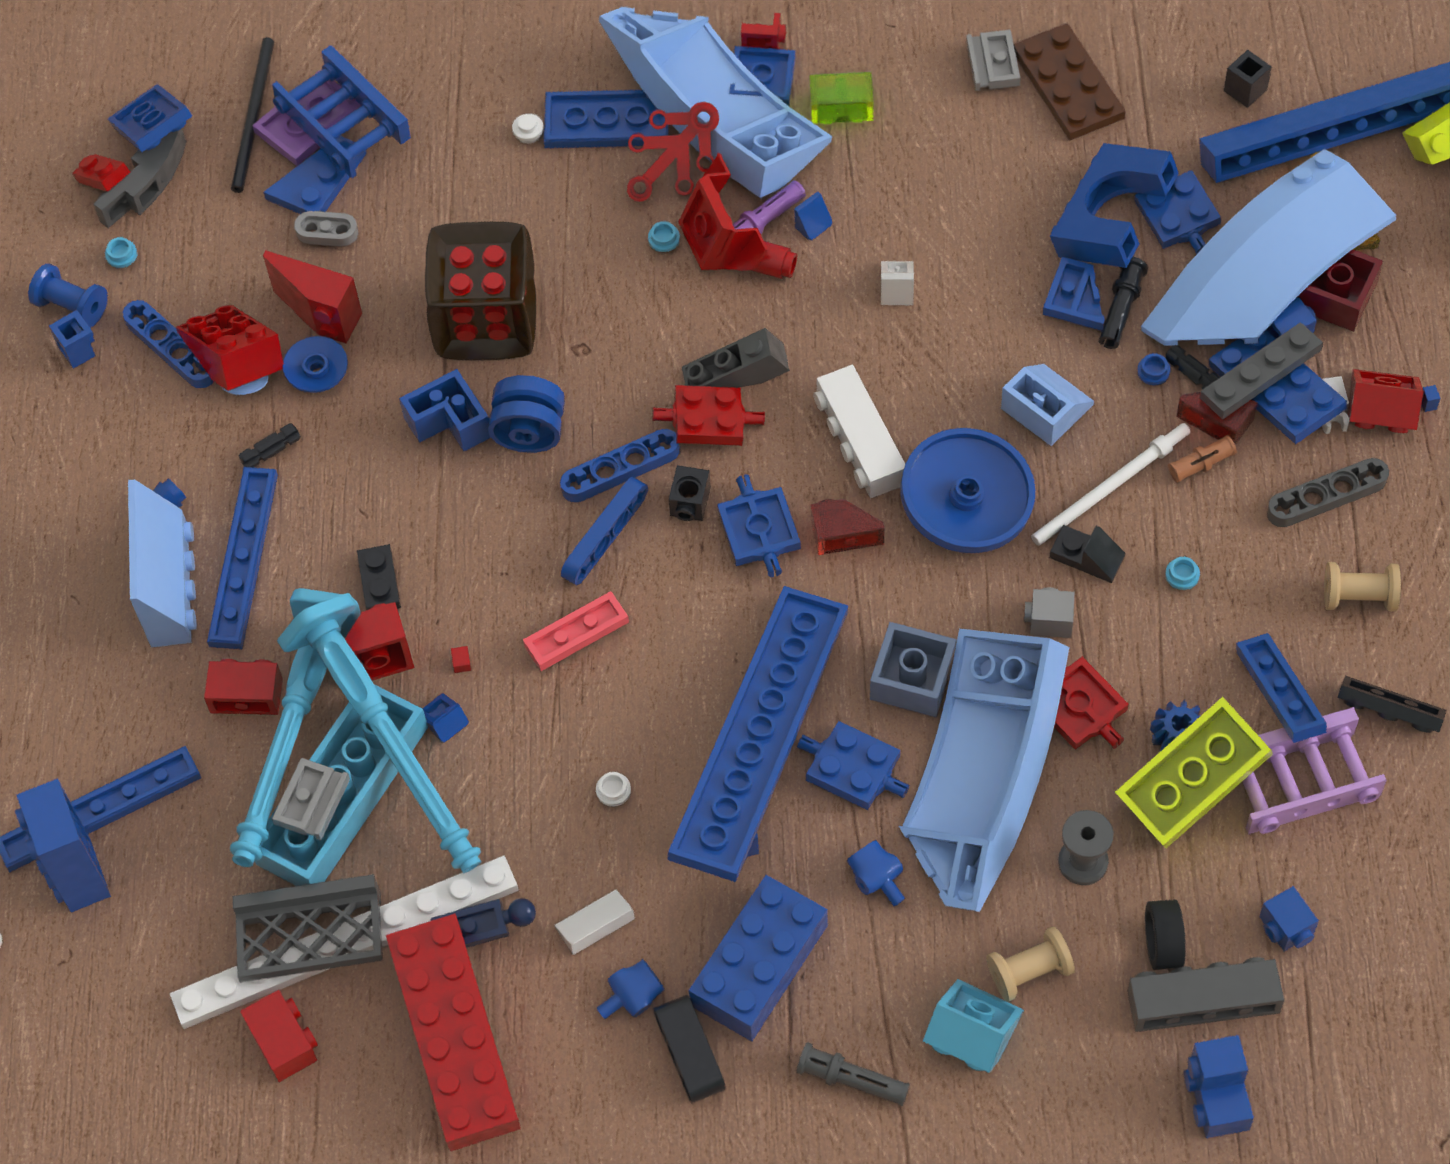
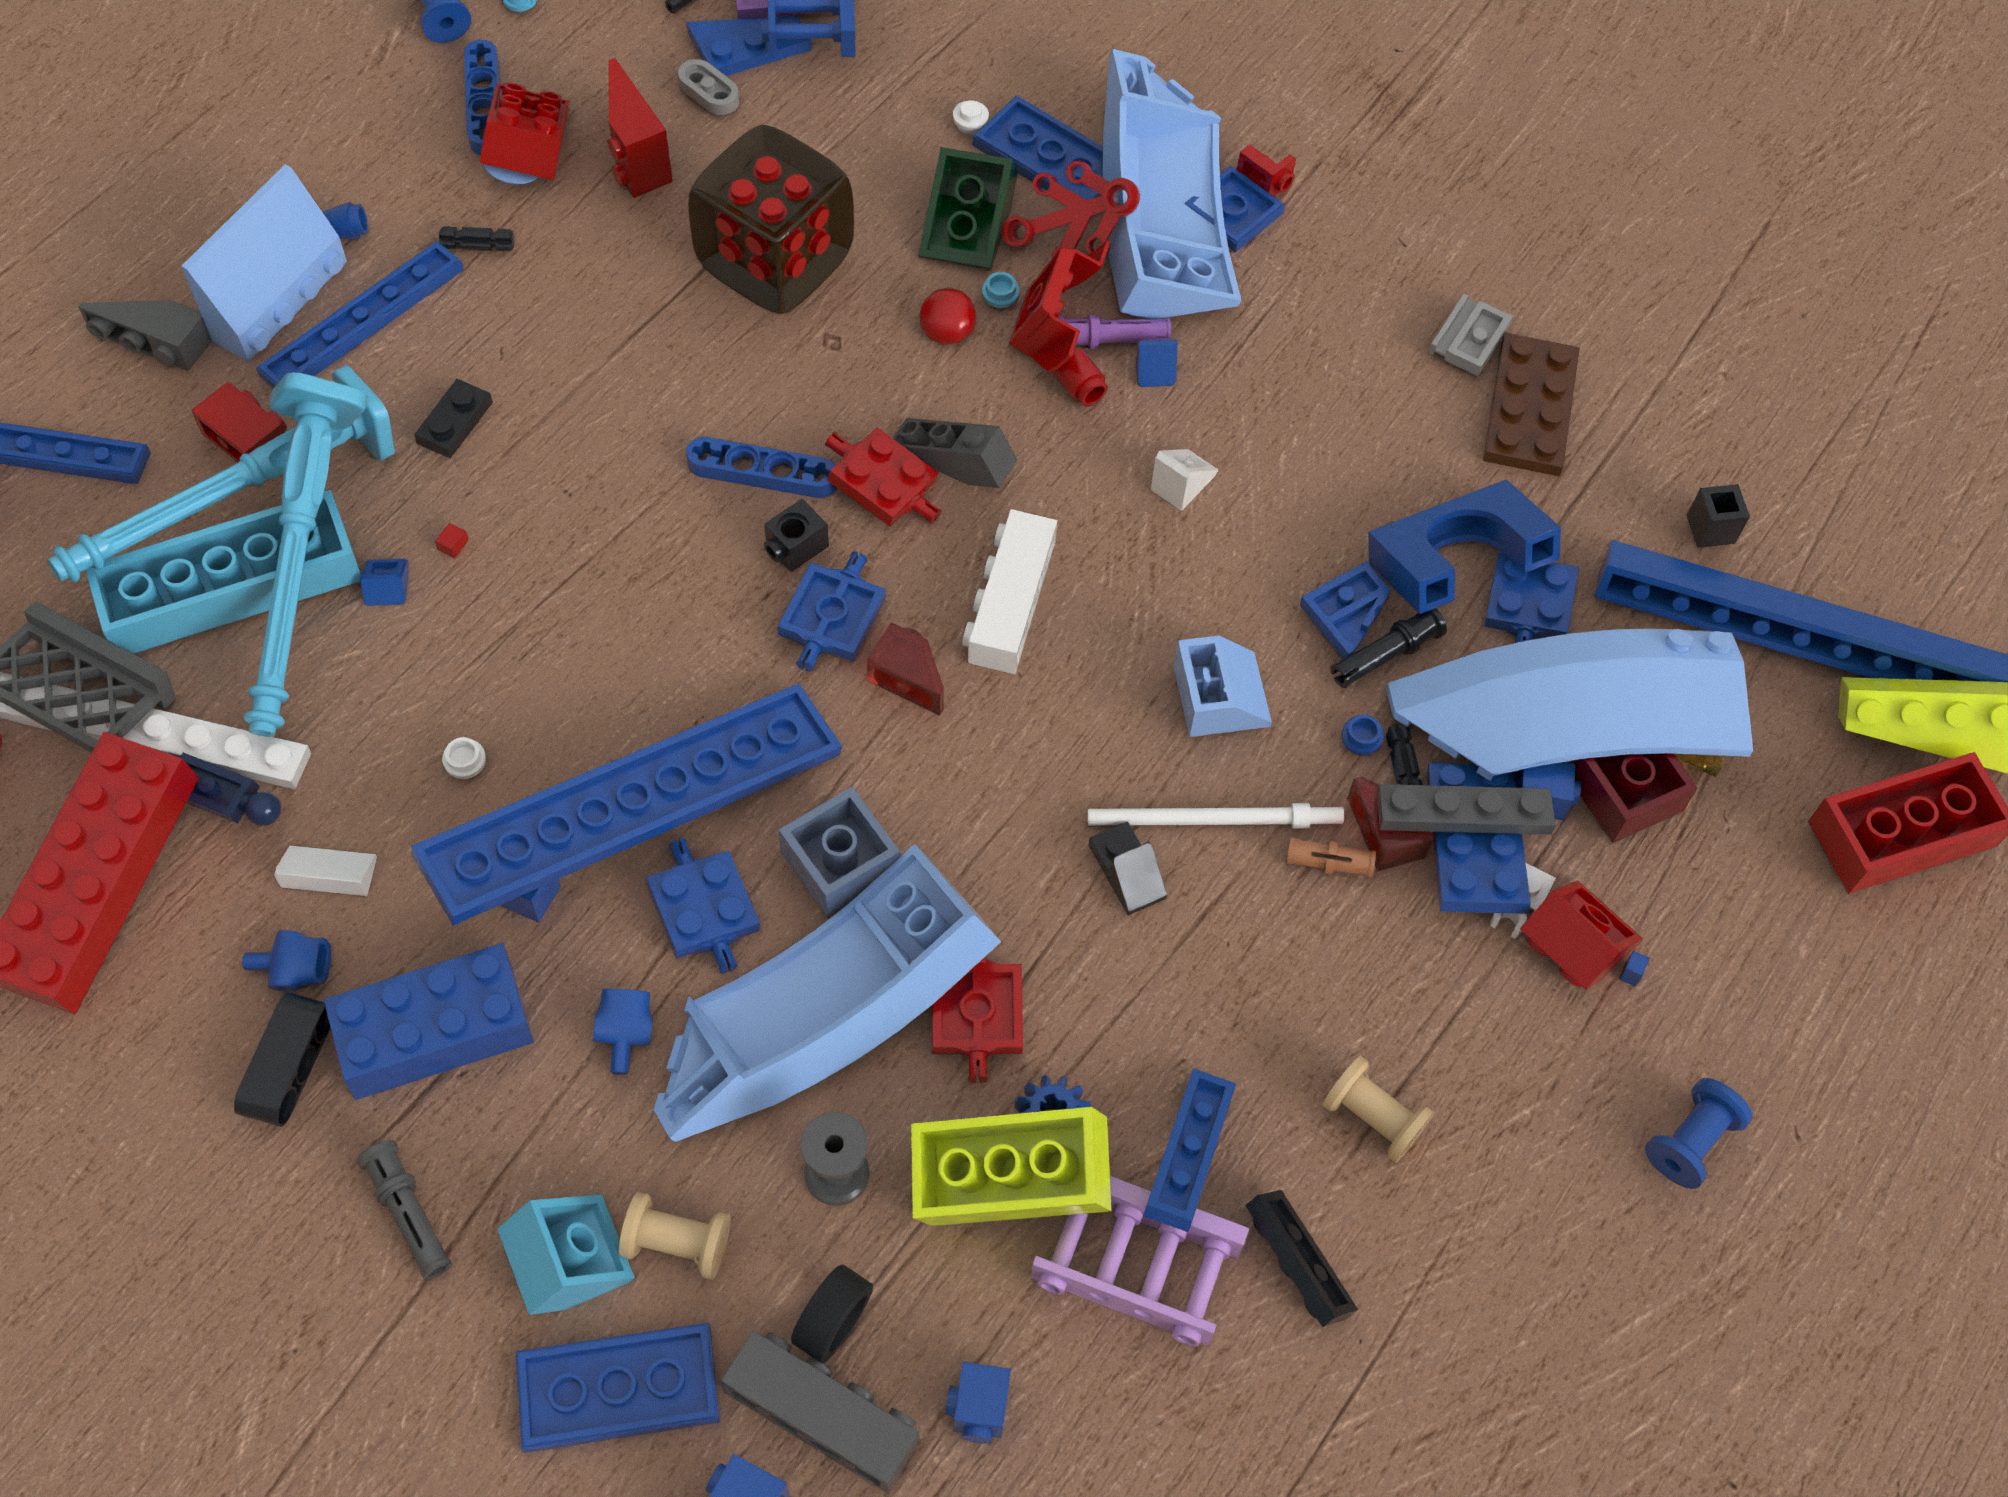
camera: 30 degrees right, 0 degrees up
(73, 338) = (400, 36): blue brick -> none
(110, 664) = (156, 328): none -> dark grey slope
(310, 799) = (170, 559): light grey plate -> none
(313, 354) = (581, 193): blue dish -> none
(380, 641) = (379, 469): red slope -> none
(446, 405) = (651, 304): blue brick -> none
(526, 414) = (711, 357): blue wheel -> none
(576, 631) = (572, 587): coral plate -> none
(592, 195) = (968, 208): none -> dark green slope
(604, 531) = (646, 524): blue beam -> none
(646, 278) = (947, 316): none -> red hair
(841, 97) = (1286, 273): clear neon green brick -> none
(967, 490) = (1057, 718): blue dish -> none
(1050, 613) = (1032, 898): light grey brick -> none
(1073, 1076) = (616, 1387): none -> blue tile
(1182, 573) = (1205, 958): medium azure plate -> none
(1330, 496) = (1434, 994): dark grey beam -> none

